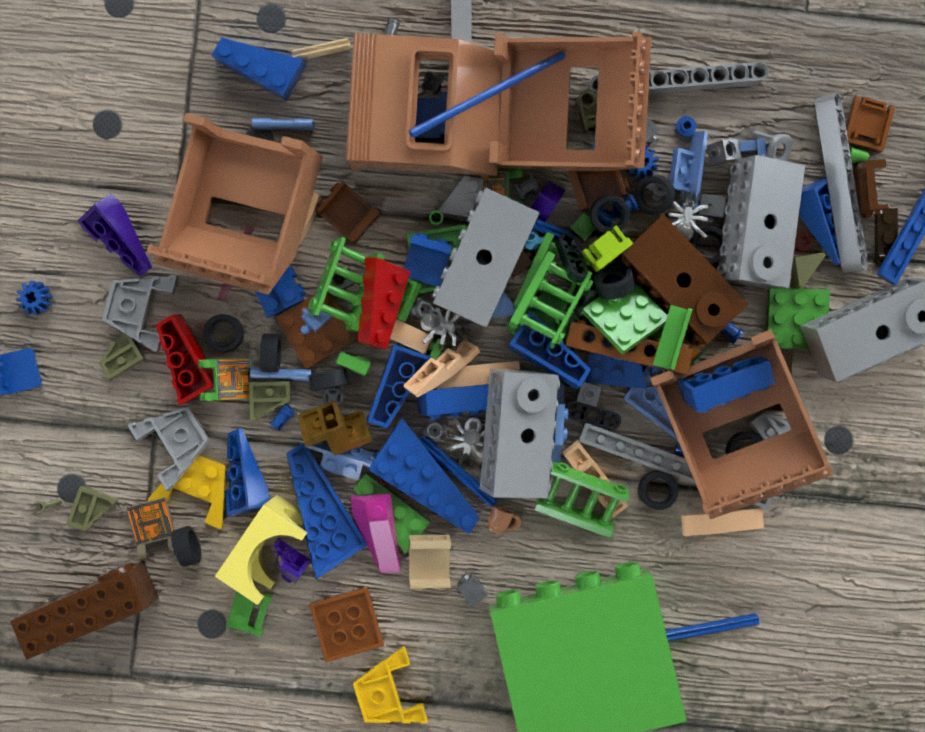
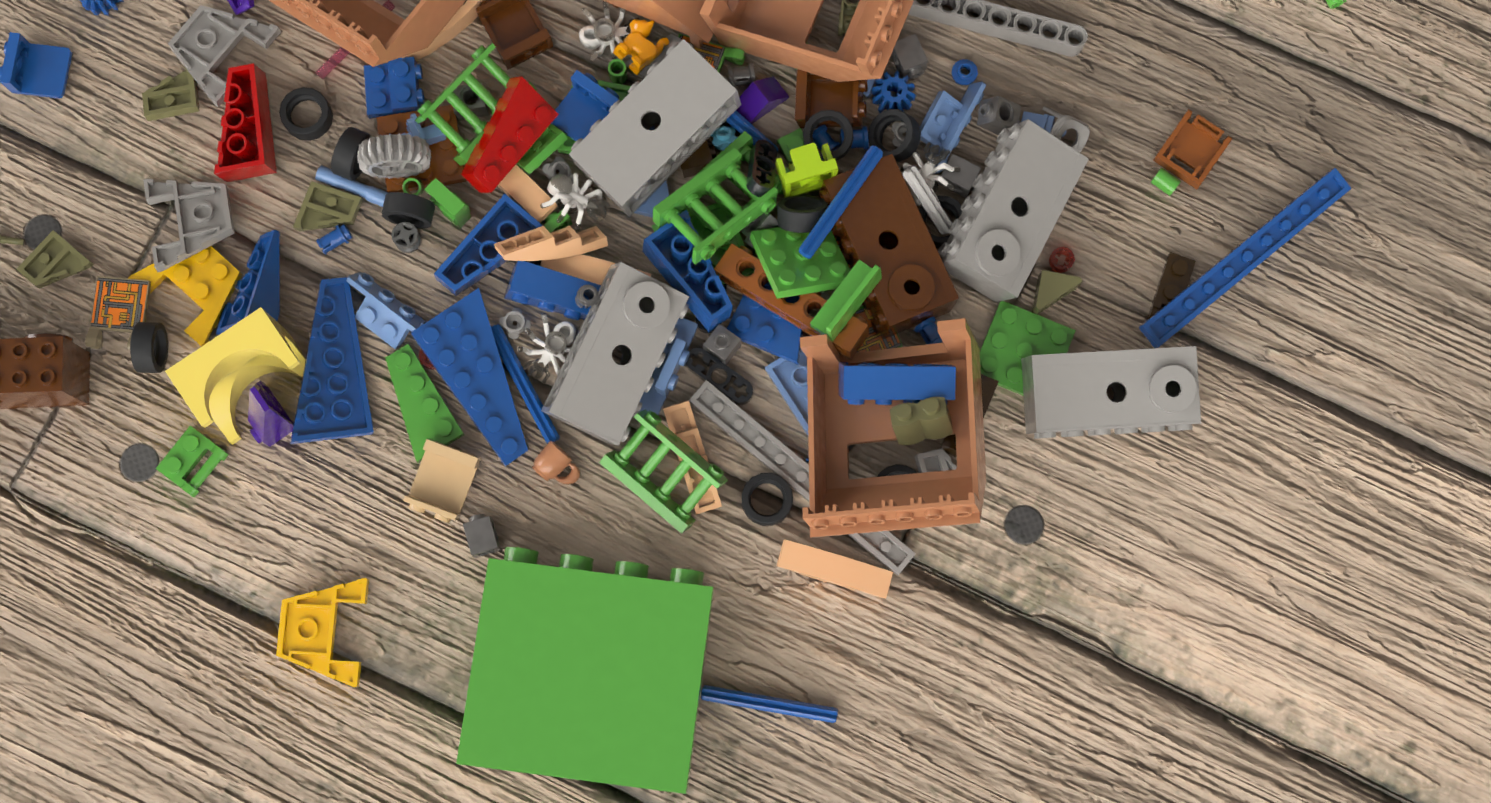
camera: 20 degrees right, 10 degrees down
(230, 379) = (288, 167): flag -> none
(304, 347) = (394, 156): none -> light grey gear
(325, 367) = (420, 185): none -> bright green hinge
(338, 430) = (391, 269): pearl gold bracket -> none
(346, 624) = (306, 522): dark orange plate -> none
(377, 525) = (395, 412): dark pink wedge -> none
(417, 191) = (603, 32): none -> white animal
(446, 196) = (640, 48): none -> light orange animal
(488, 400) = (592, 294): none -> flat silver pin
(642, 266) = (840, 202): none -> blue axle
(698, 236) = (927, 199): none -> light grey axle
(752, 407) = (921, 420): none -> olive brick
(818, 216) = (1093, 228): blue wedge -> none
(841, 183) = (1132, 205): light grey beam -> none
(866, 187) = (1168, 196): reddish brown panel -> none

